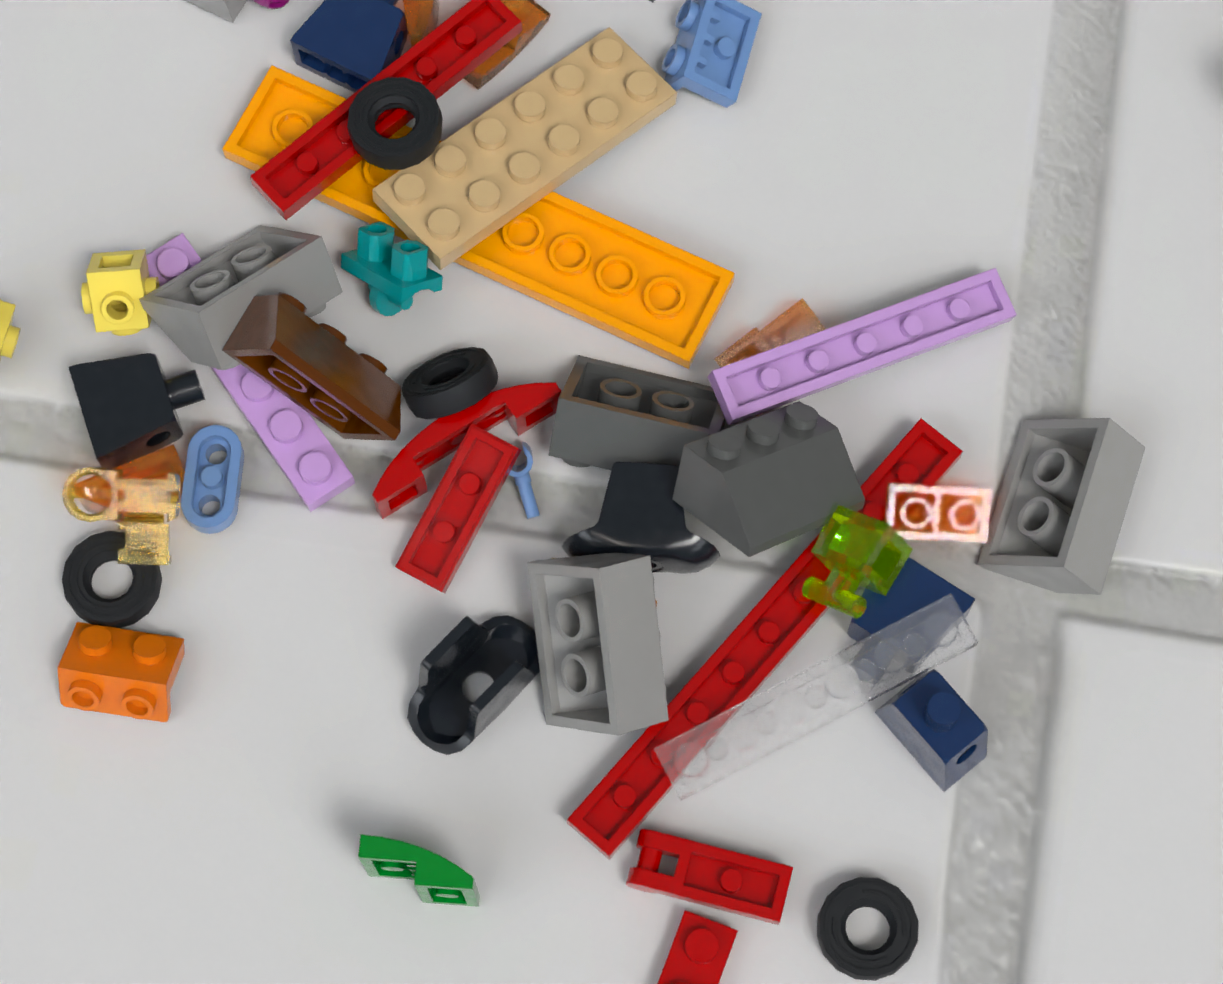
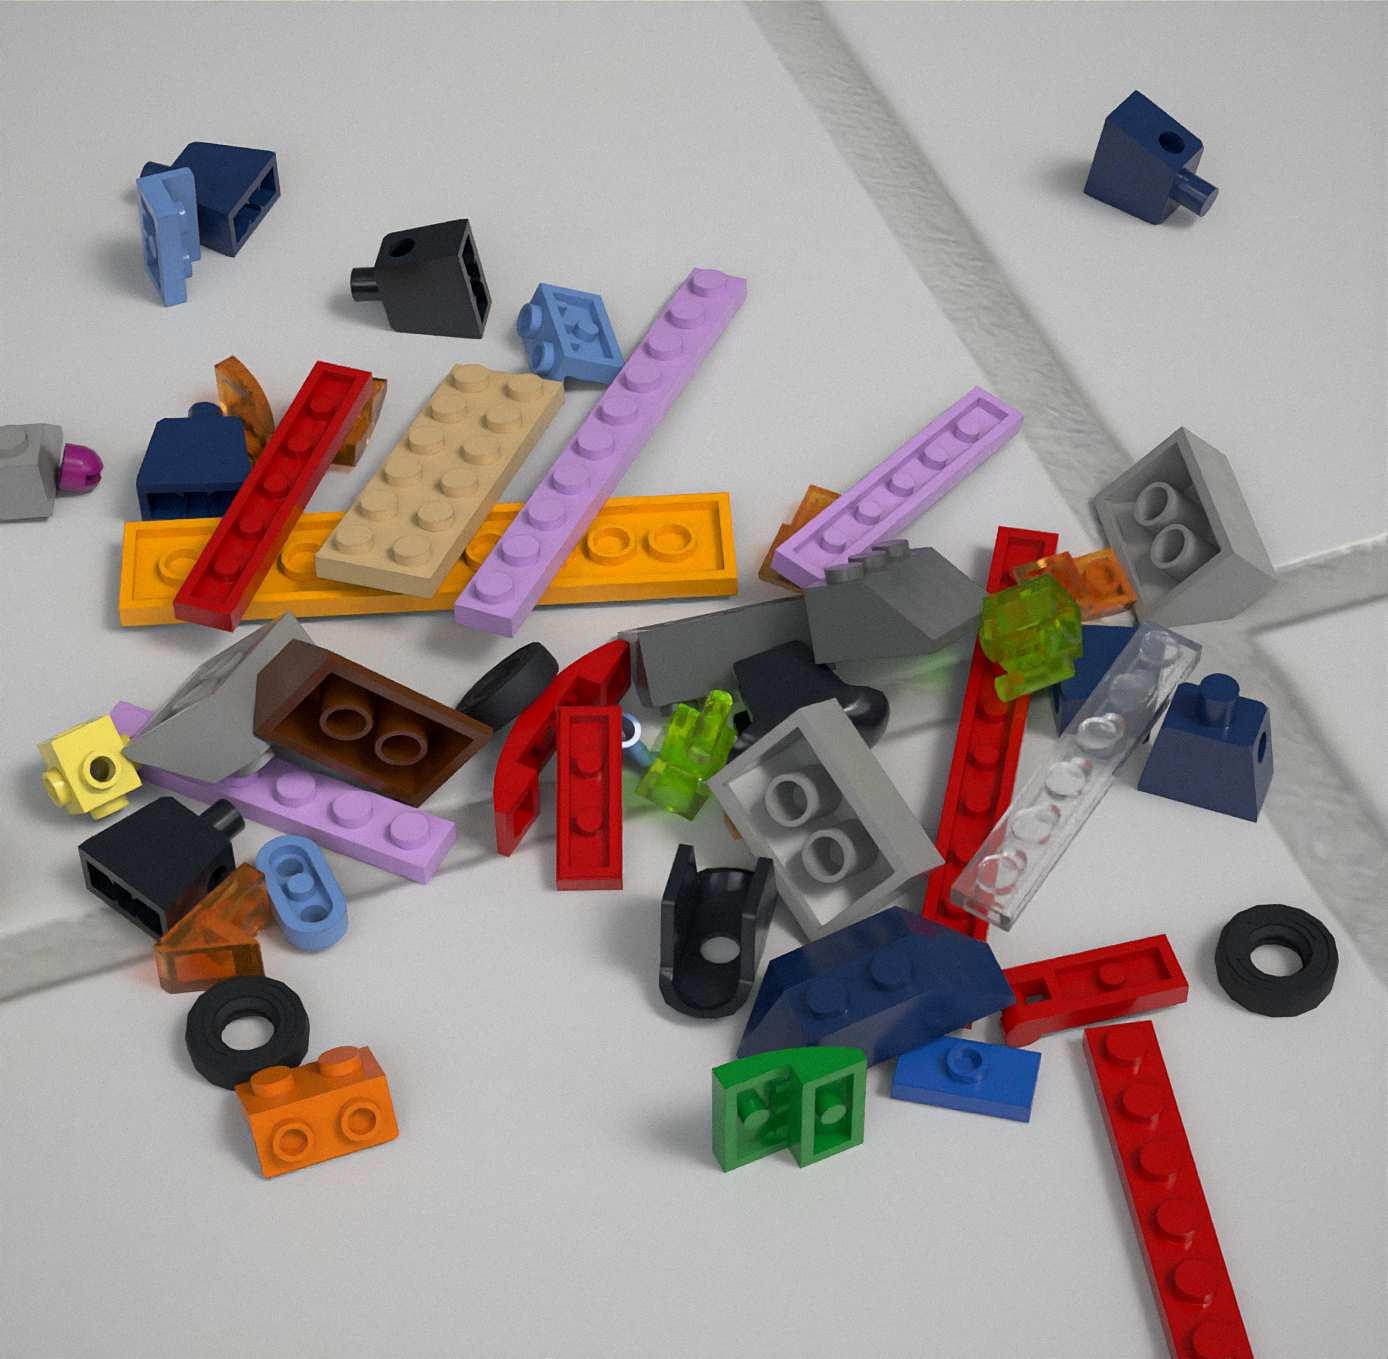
camera: 30 degrees left, 25 degrees down
(143, 508) = (252, 922): clear yellow piece -> none
(386, 95) = (305, 514): black tyre -> none
(390, 268) = (398, 615): teal hips -> none
(537, 805) = (876, 988): none -> dark blue wedge
(543, 518) = (687, 755): none -> clear neon green brick
(580, 897) = (969, 1077): none -> blue plate
(665, 179) = (599, 455): none -> lavender plate

